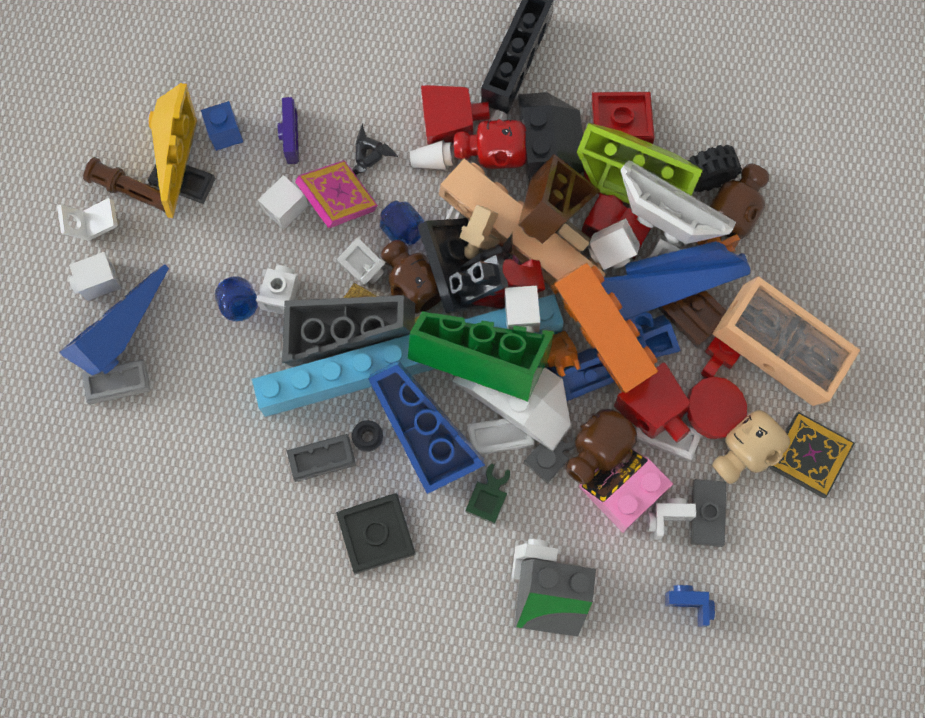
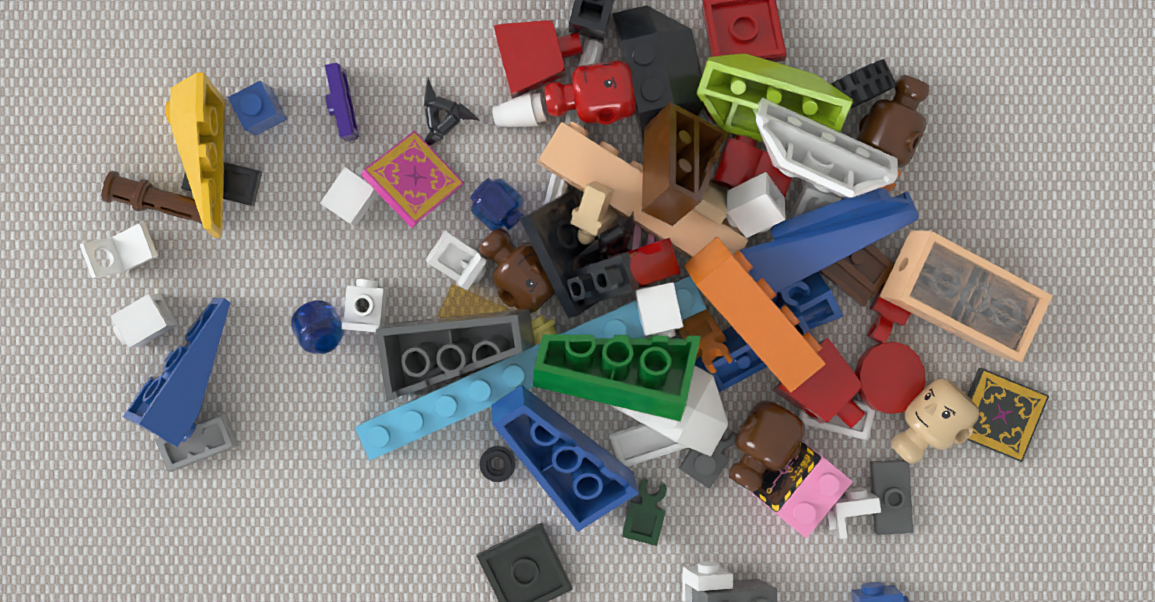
camera: 15 degrees left, 15 degrees up
(321, 458) = (449, 497): dark grey plate -> none

